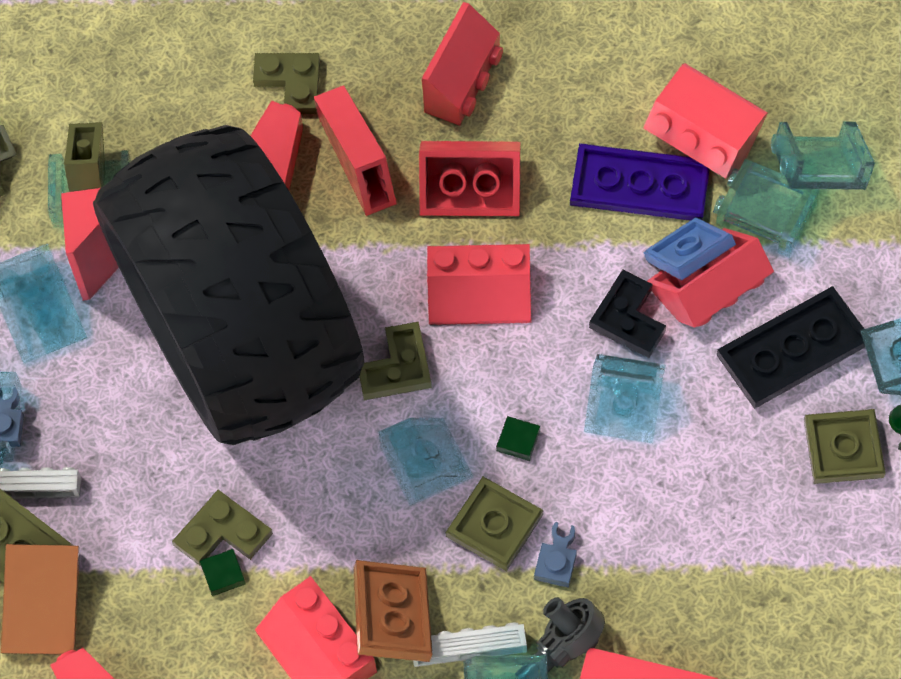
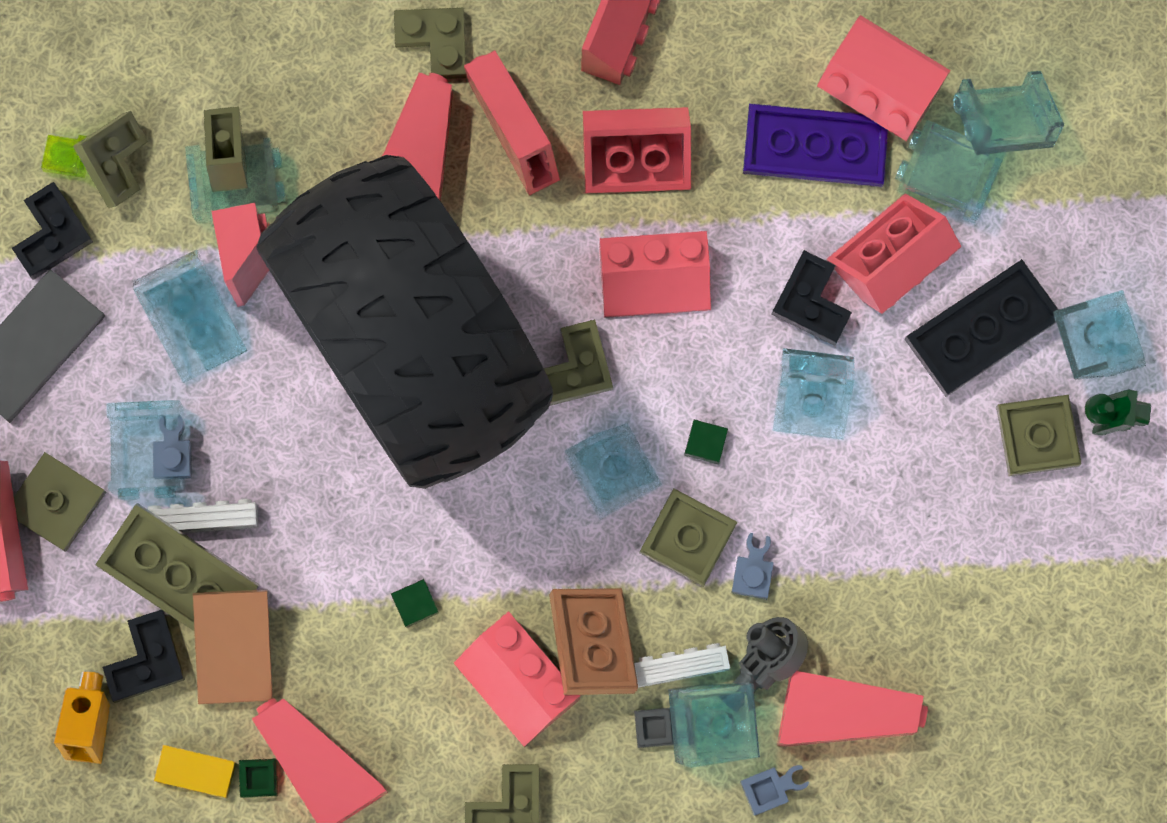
camera: 10 degrees left, 15 degrees up
(220, 521) = (406, 548): olive plate -> none
(689, 248) = (872, 224): medium blue tile -> none

